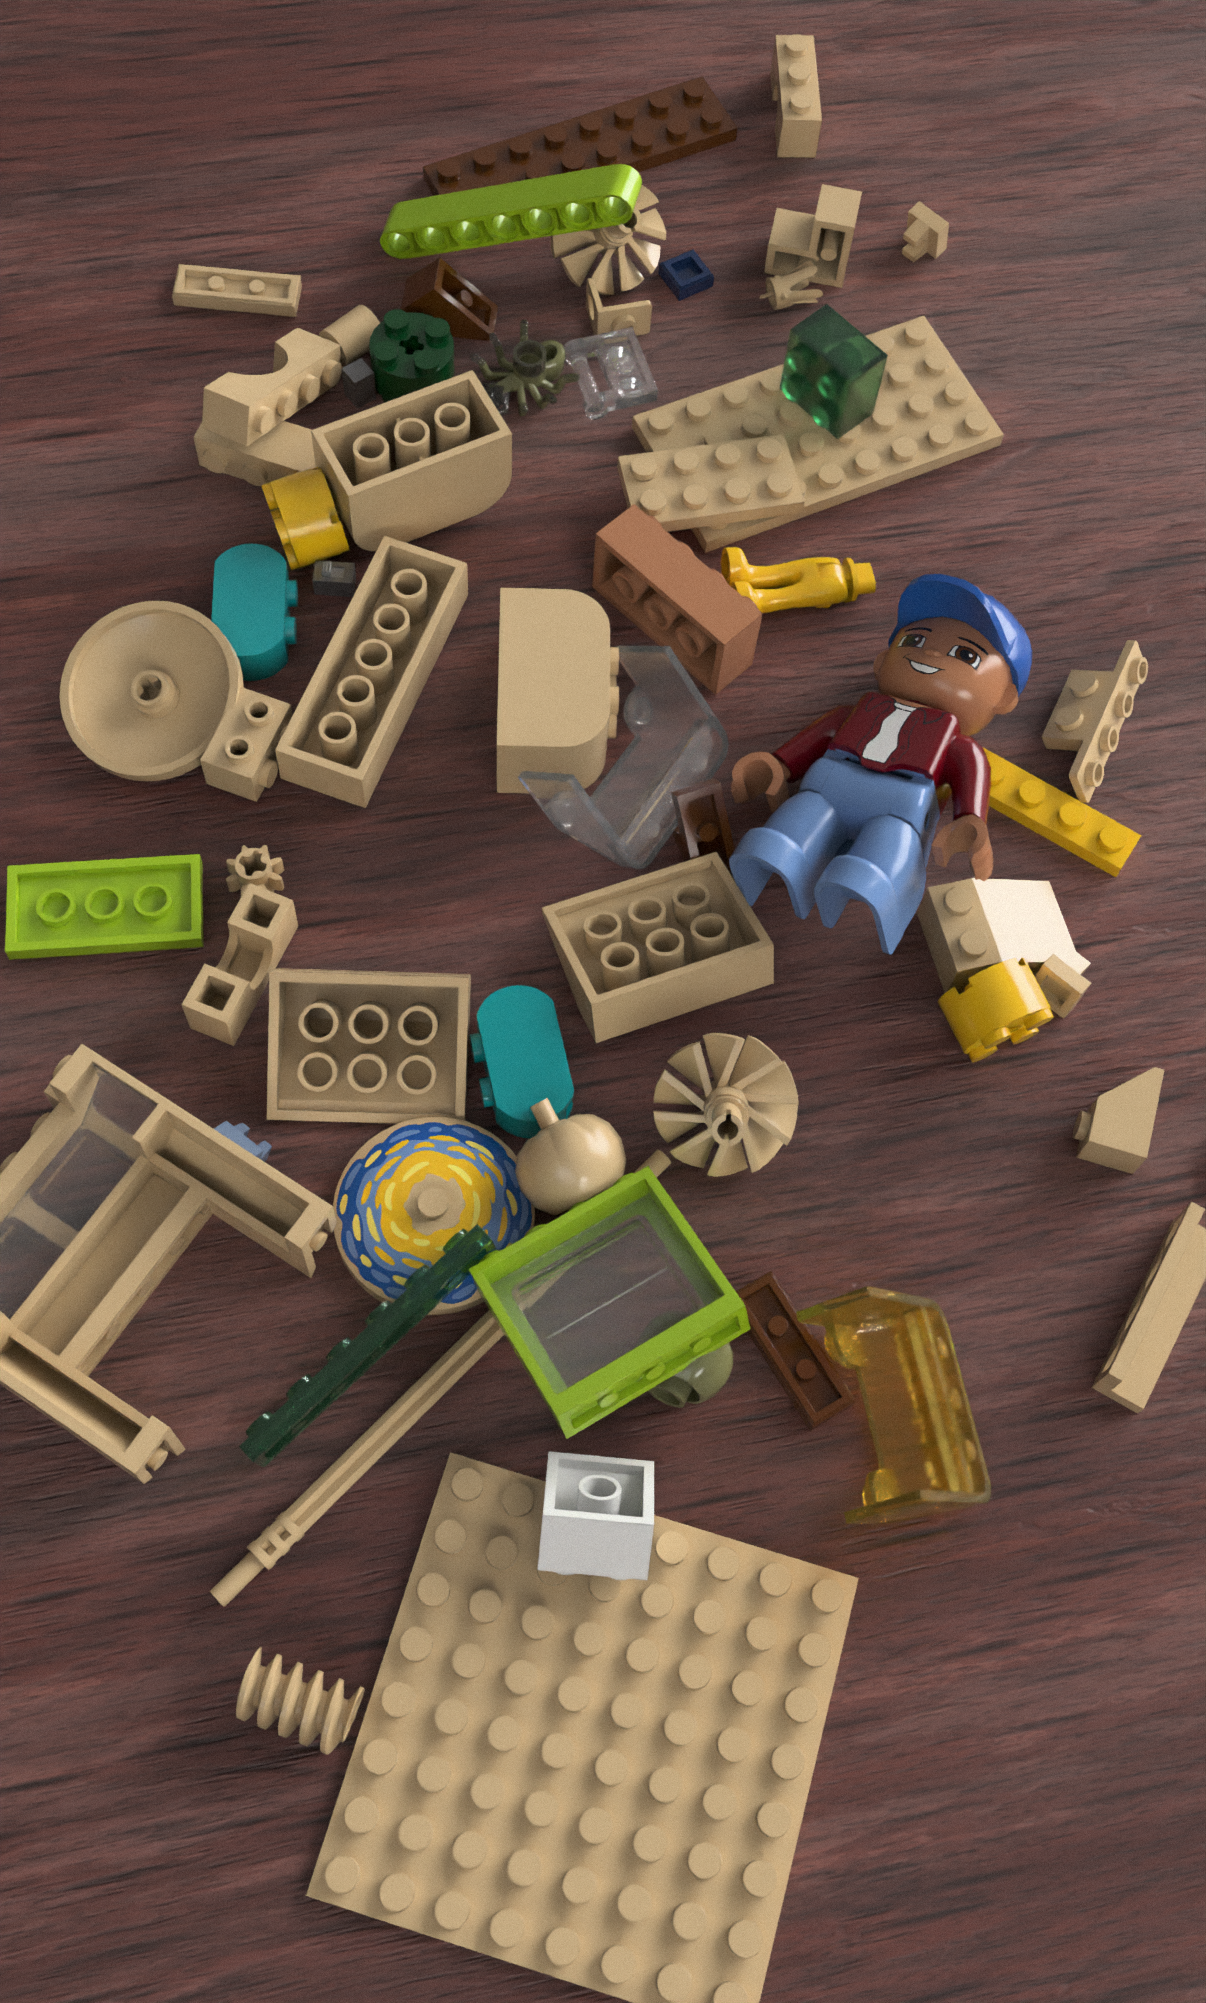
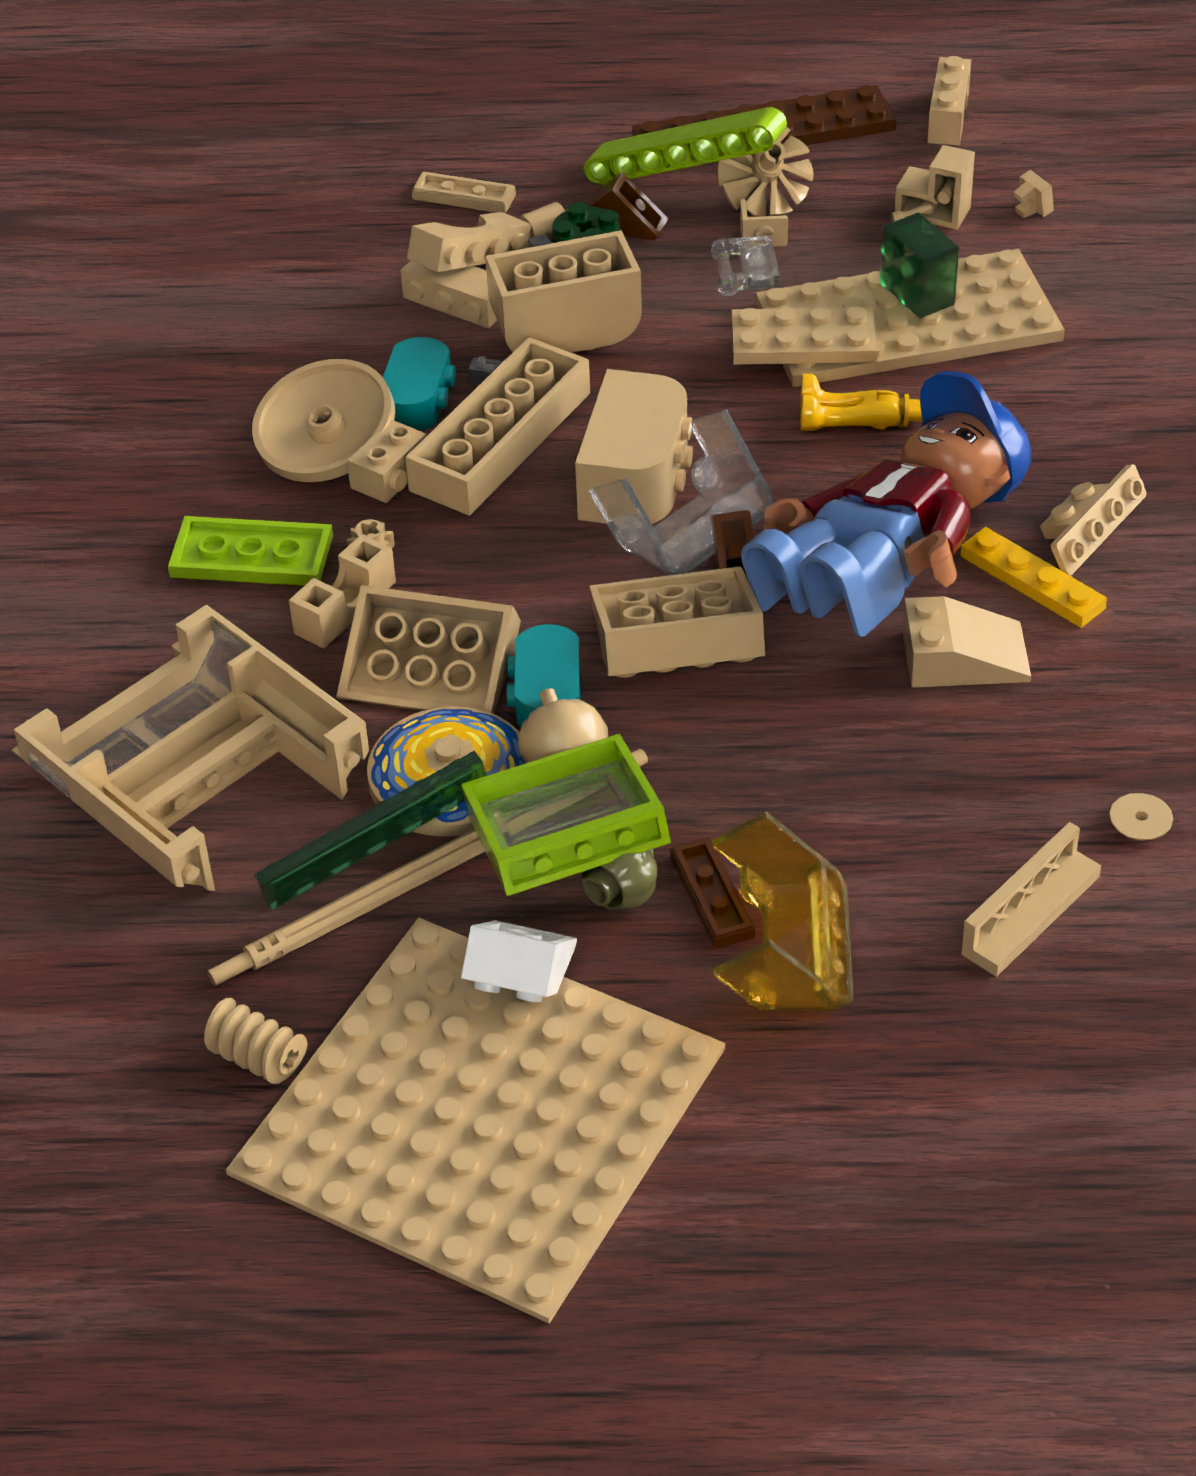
camera: 20 degrees right, 20 degrees down
(305, 517) = (472, 326): yellow brick -> none
(532, 367) = (680, 254): animal -> none
(675, 598) = (761, 402): nougat brick -> none
(686, 275) = (827, 210): dark blue tile -> none
(751, 1104) = (692, 739): tan piece -> none
(995, 1007) = (942, 684): yellow brick -> none
(1063, 982) = (1006, 682): tan tile -> none
(1120, 1123) = (1031, 776): tan slope -> none

